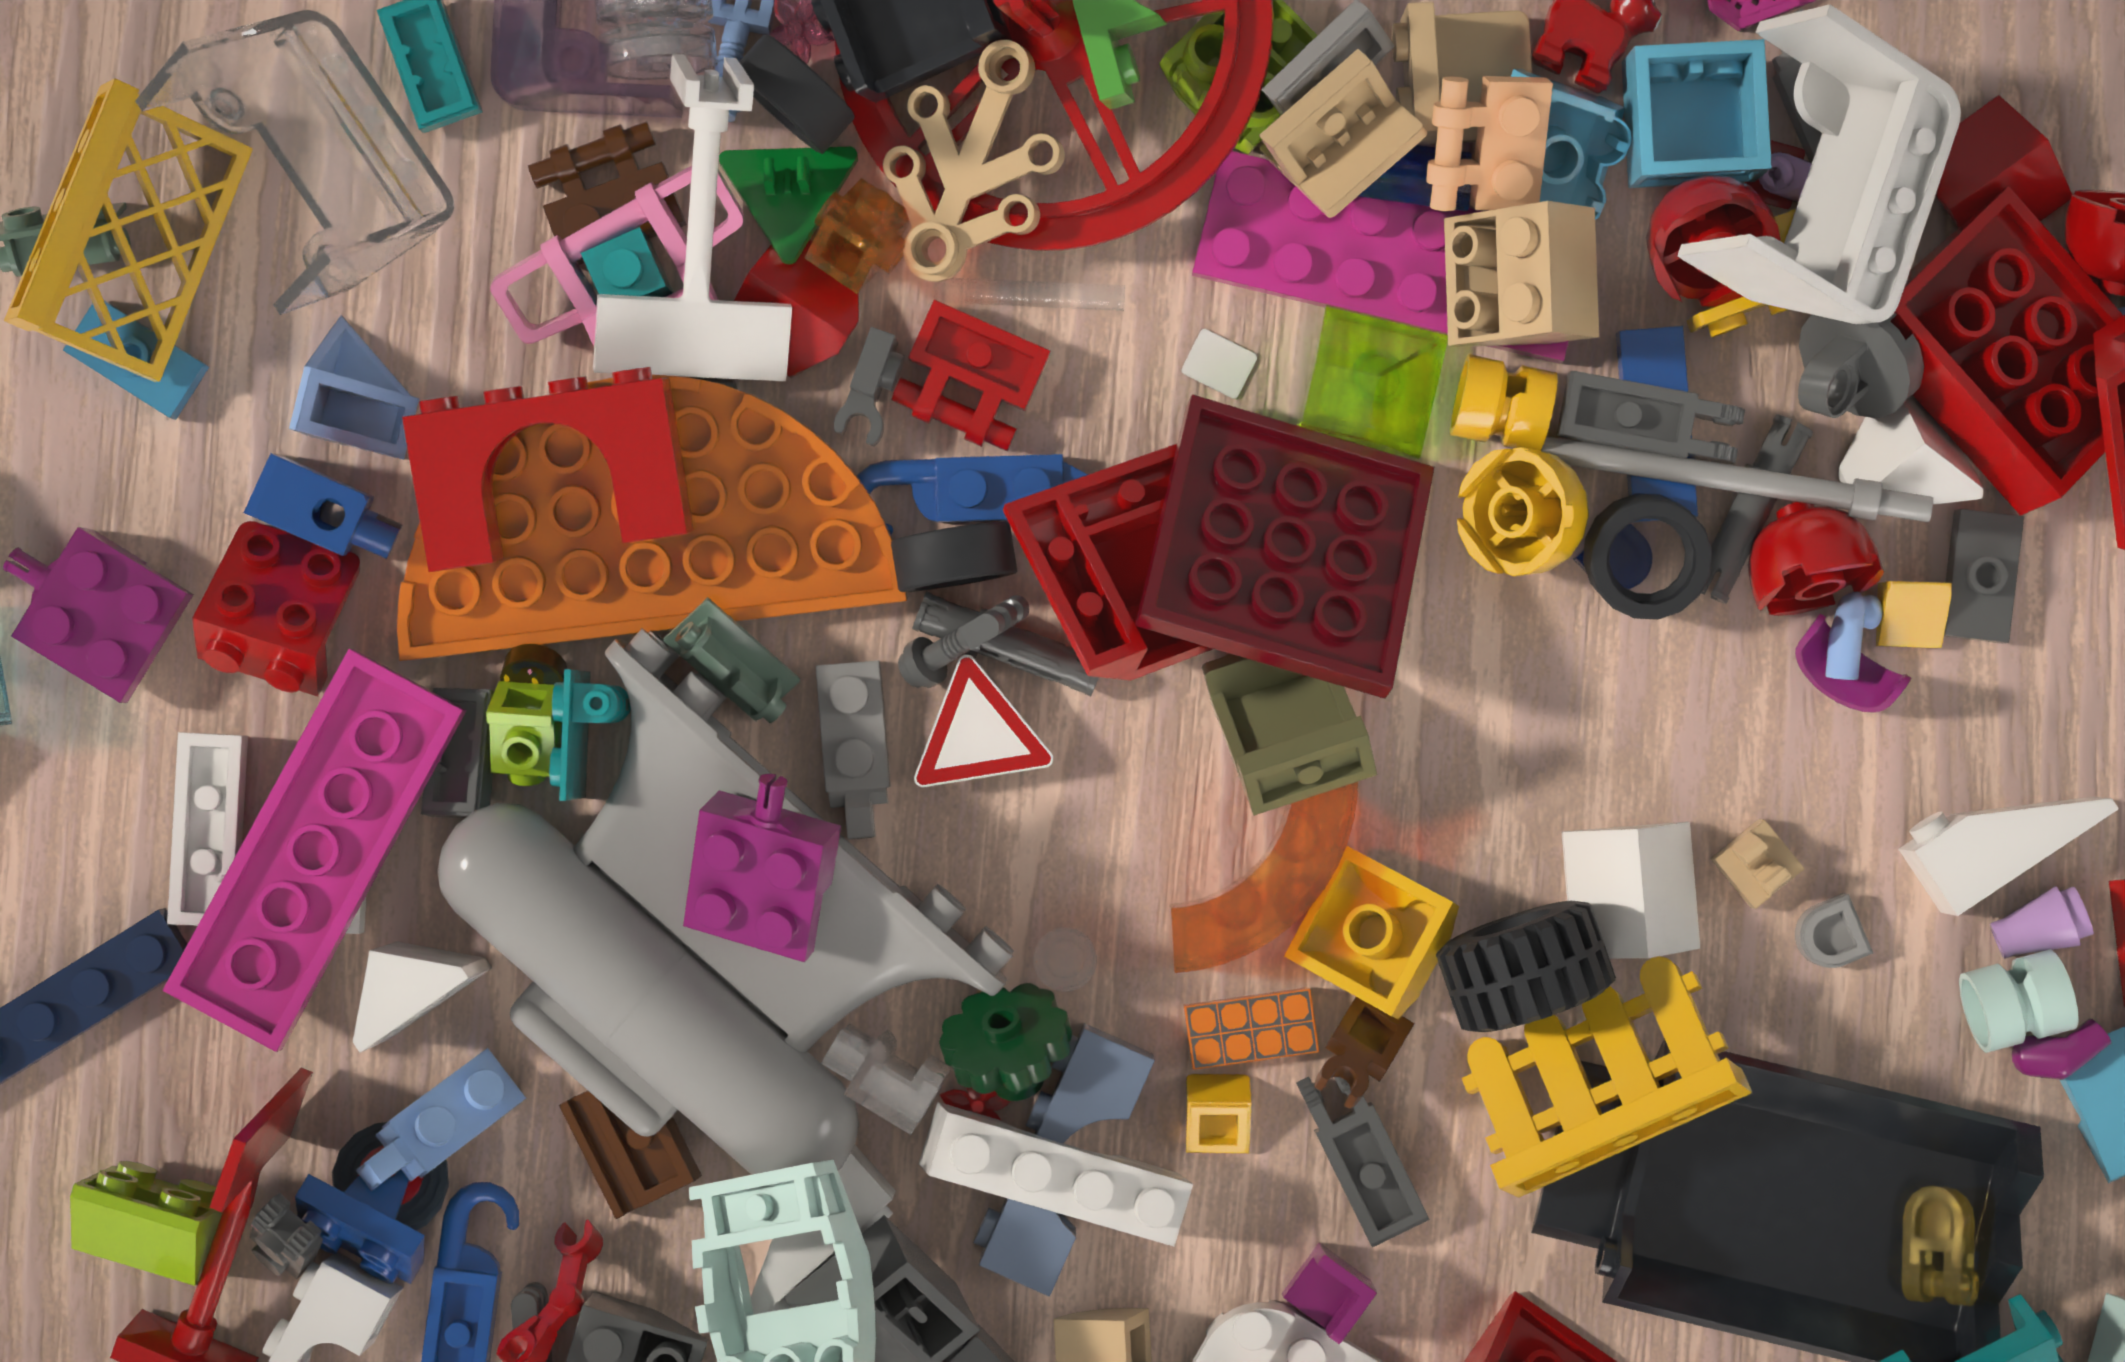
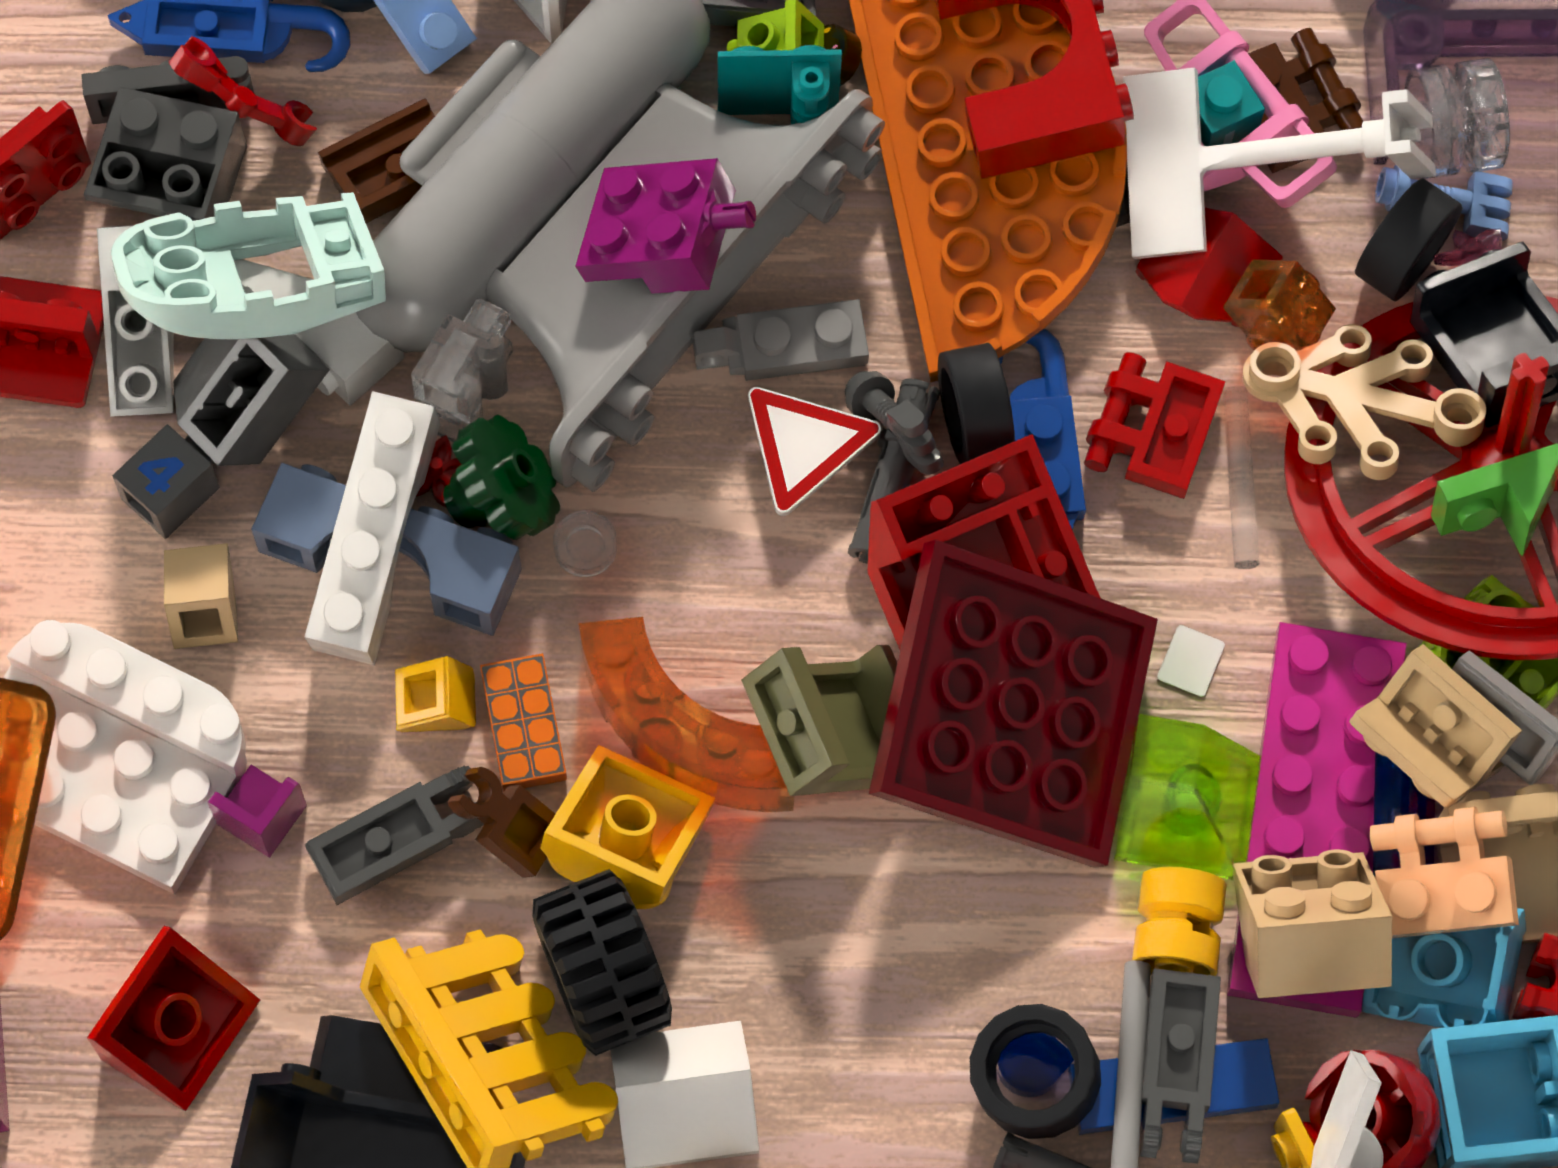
camera: 85 degrees right, 20 degrees down
(733, 661) = (859, 222): sand green hinge -> none
(787, 189) = (1324, 247): green piece -> none
(876, 369) = (1142, 330): dark grey plate -> none
(1522, 511) = (1070, 944): yellow cylinder -> none

